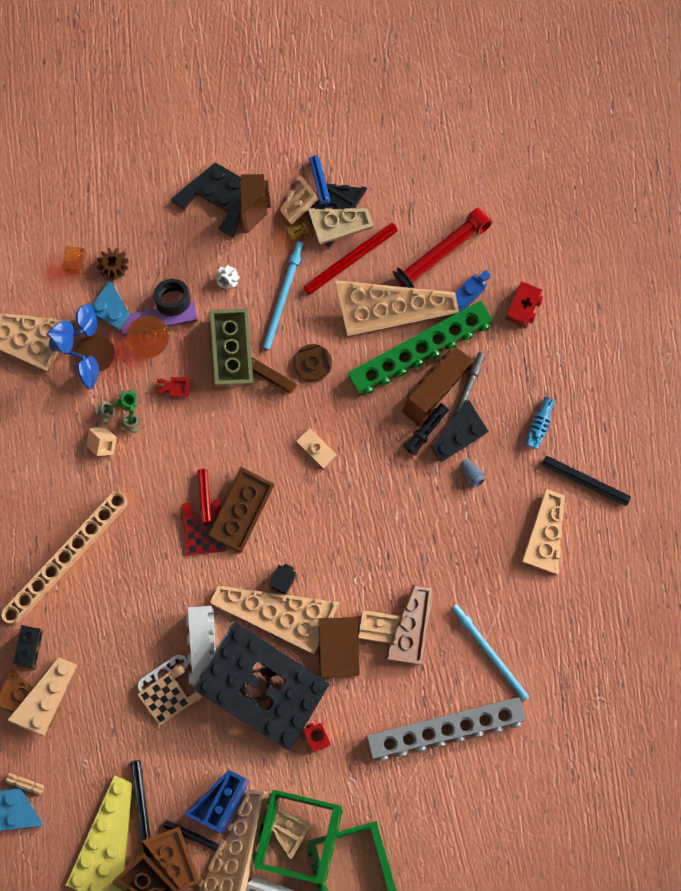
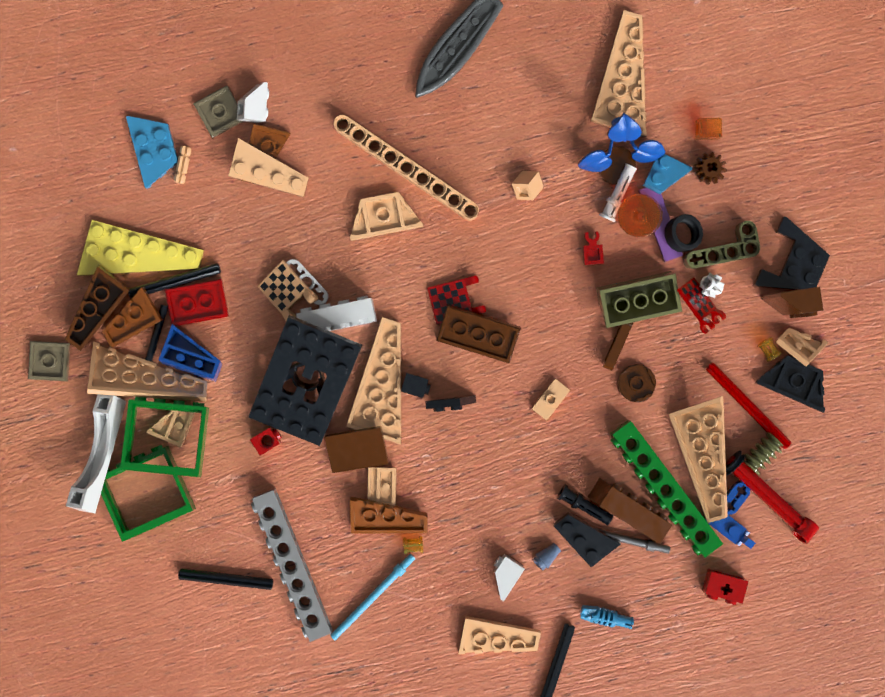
camera: 80 degrees right, 10 degrees up
(28, 647) = (313, 146): black brick -> none
(109, 588) = (383, 216): none -> light nougat wing
(127, 401) = (568, 204): plant -> none
(130, 359) = (614, 202): none -> white pin
(167, 789) = (197, 302): none -> red tile
(194, 264) = (721, 251): none -> olive beam
(204, 496) = (487, 296): red axle -> none
(244, 290) = (700, 305): none -> red flag
(294, 261) = (737, 349): medium azure bar -> none
(305, 542) = (455, 403): none -> black wing
(319, 179) = (825, 363): blue axle -> none
(338, 223) = (782, 389): tan wing -> none
(397, 250) = (763, 453): none -> olive piece
(442, 280) = (739, 500): none -> blue beam
(443, 603) = (413, 545): none -> clear yellow bush
(452, 799) = (225, 579): none -> black axle
(485, 515) = (507, 573): none -> white slope

